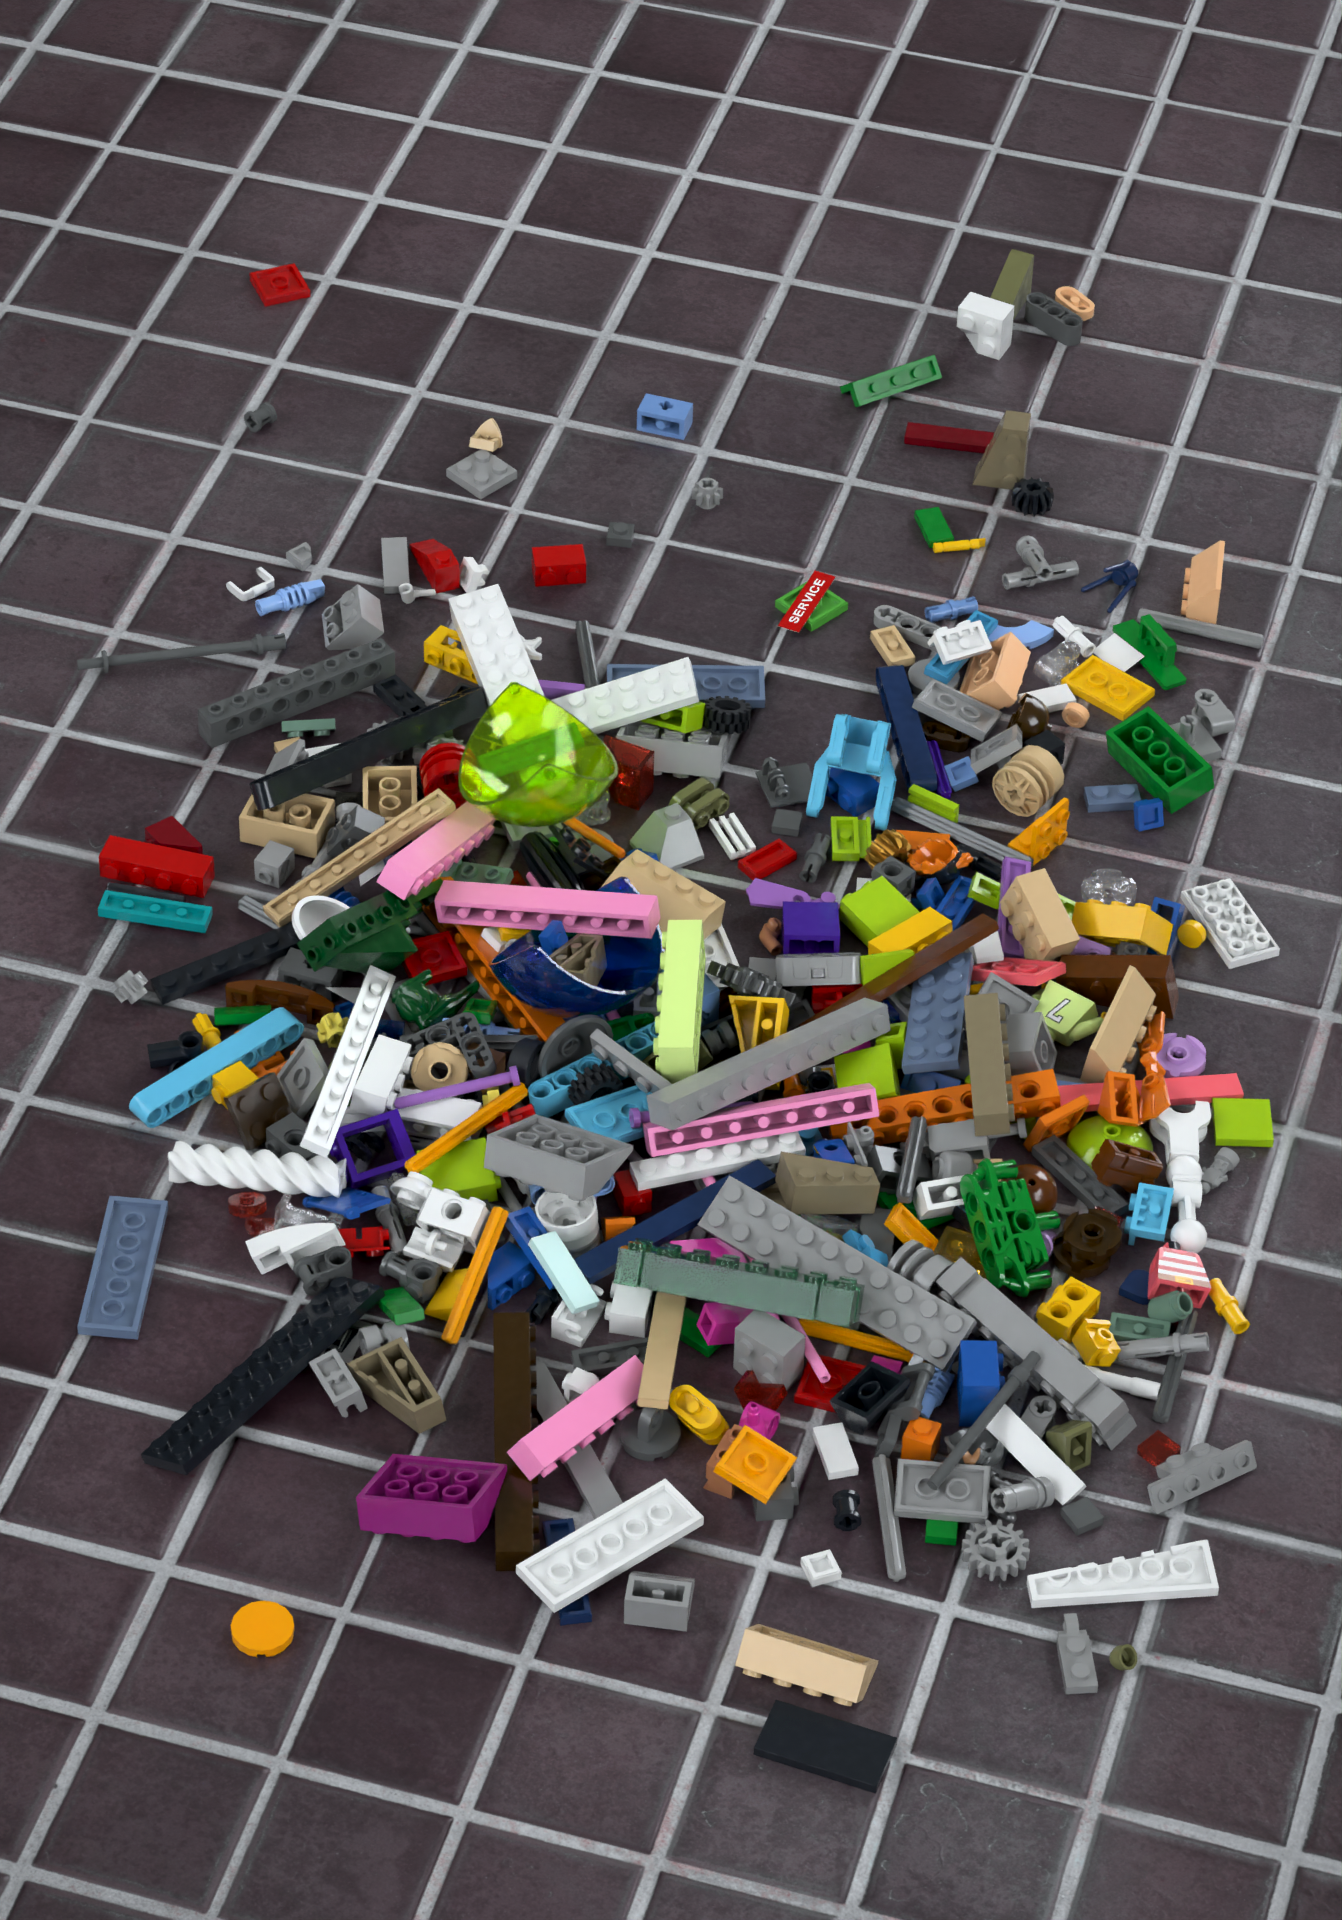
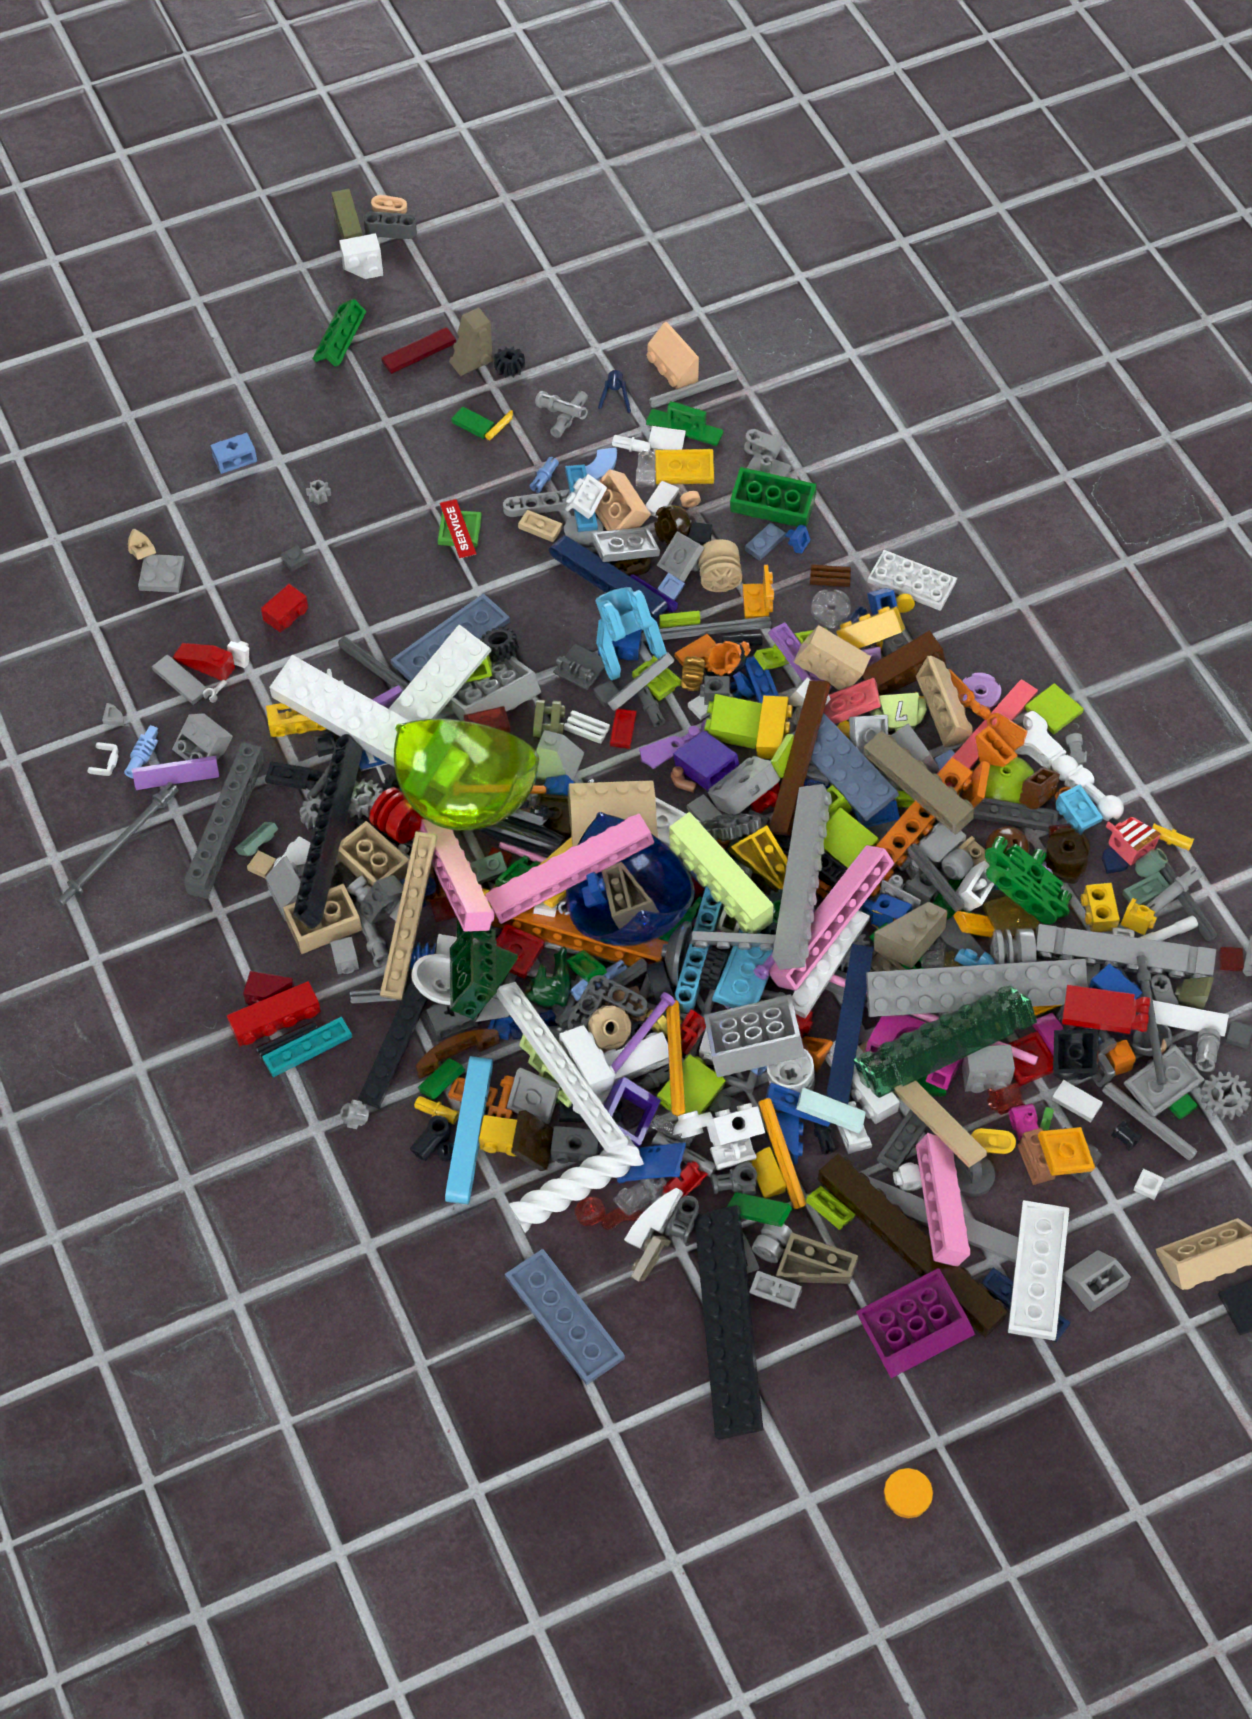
camera: 40 degrees left, 15 degrees up
(255, 1274) = (652, 1248): none -> dark tan wing
(298, 630) = (175, 772): none -> medium lavender tile
(331, 1029) = (509, 1046): light yellow gear -> none
(469, 1371) = (827, 1207): none -> lime tile
(782, 1436) = (1046, 1120): none -> bright green tile
(824, 824) = (640, 681): none -> light grey beam
(934, 1367) = (1105, 1010): none -> red tile
(1147, 864) = (830, 573): none -> reddish brown tile

